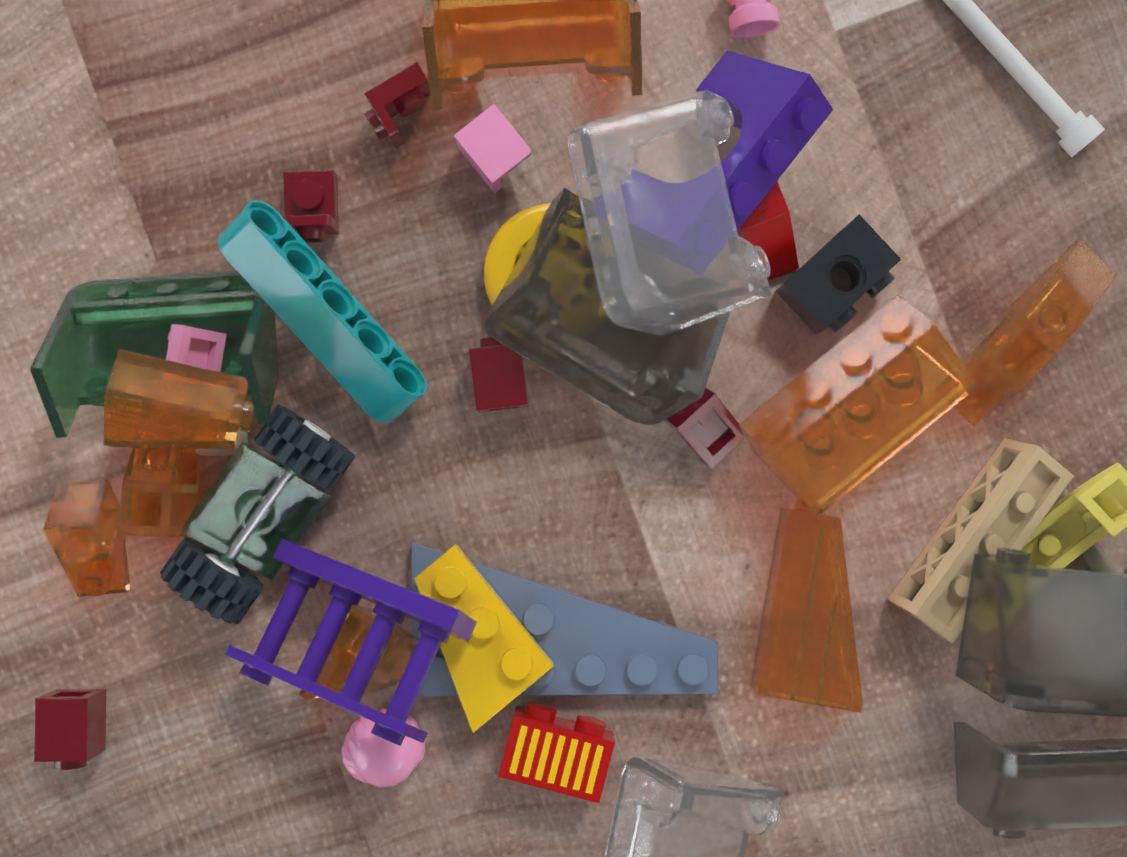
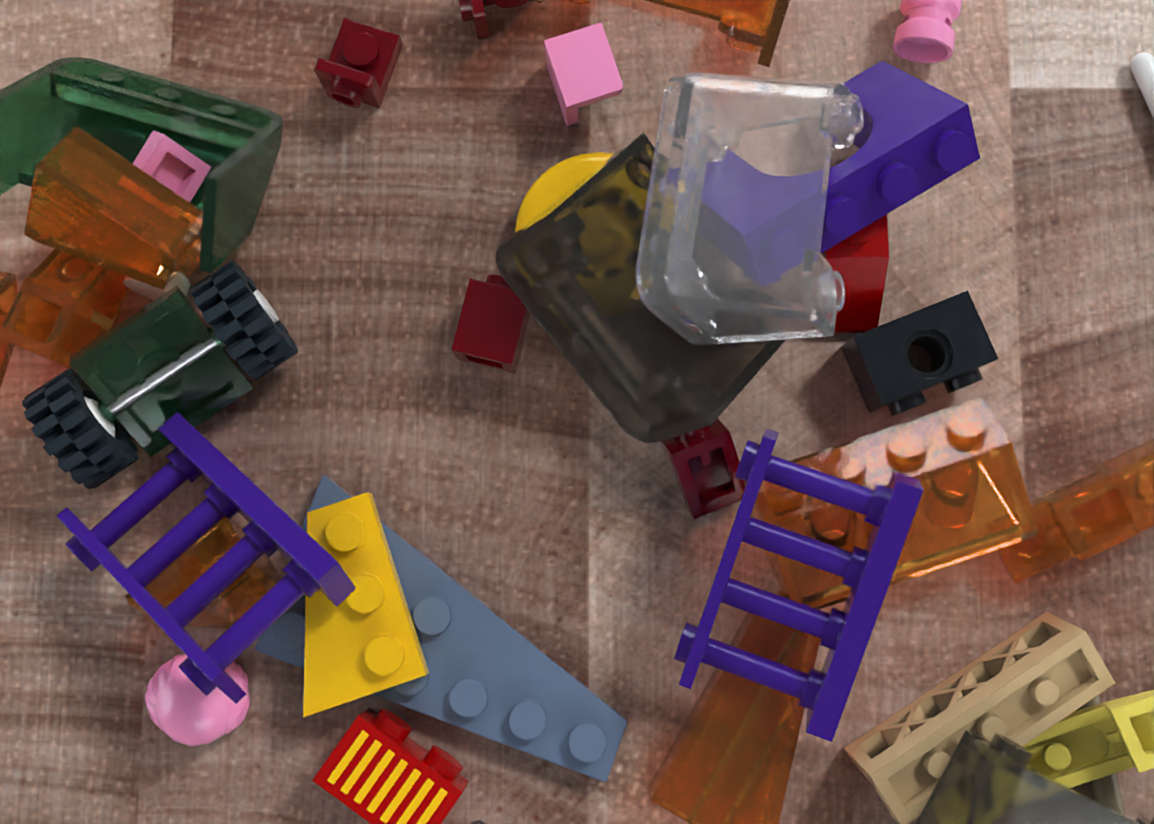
camera: 25 degrees right, 5 degrees down
(321, 312) = (323, 179): teal beam -> none
(856, 465) = (865, 571): none -> dark purple fence

